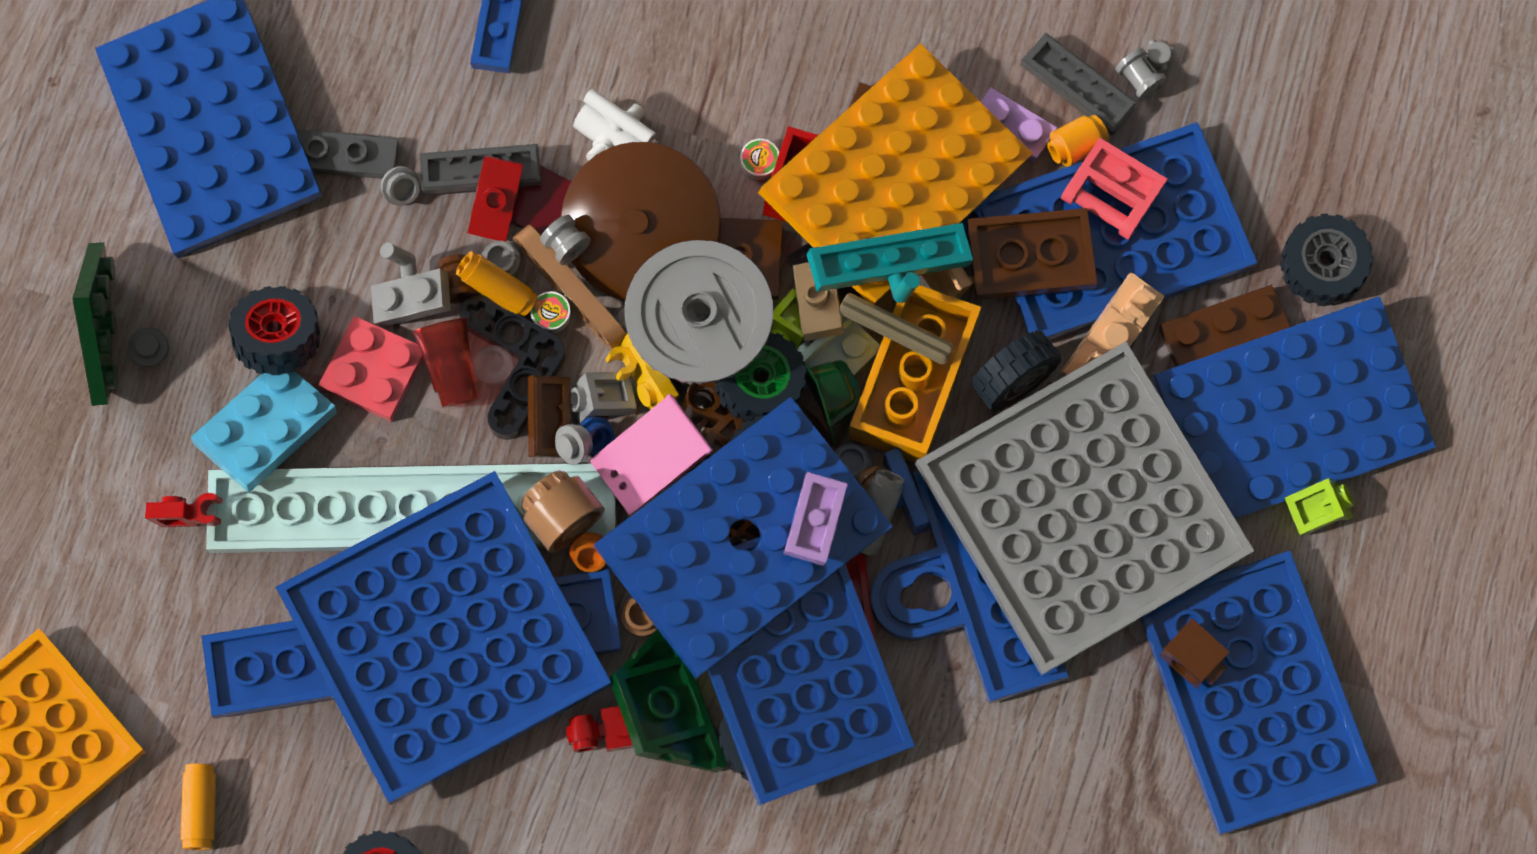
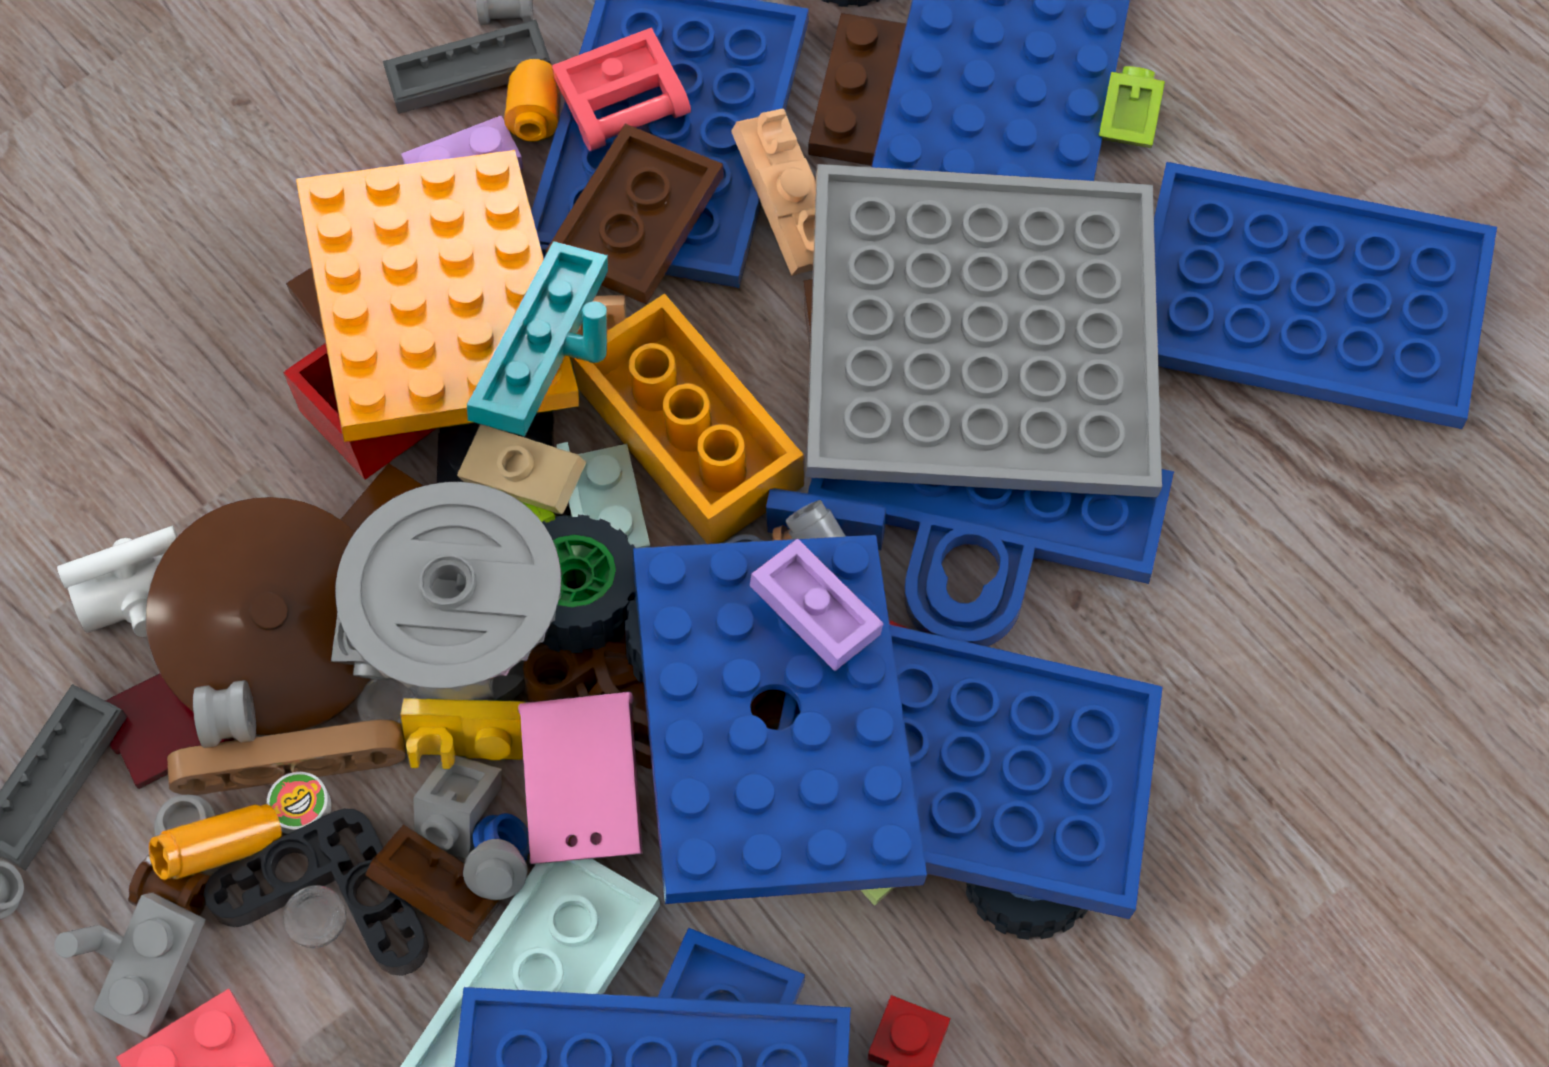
camera: 55 degrees left, 10 degrees down
(449, 360) = (270, 964): clear red plant -> none
(495, 198) = (101, 776): red plate -> none
(560, 509) = (576, 930): medium nougat piece -> none
(584, 554) = (652, 935): orange plate -> none
(636, 620) = (775, 927): medium nougat plate -> none
(665, 708) = (916, 962): dark green wing -> none
(759, 159) = (293, 446): tile -> none
(834, 391) = (654, 515): dark green piece -> none
(896, 328) = (626, 394): dark tan axle -> none
(1016, 370) = (765, 306): black wheel -> none
(1196, 655) = (1238, 314): reddish brown brick -> none

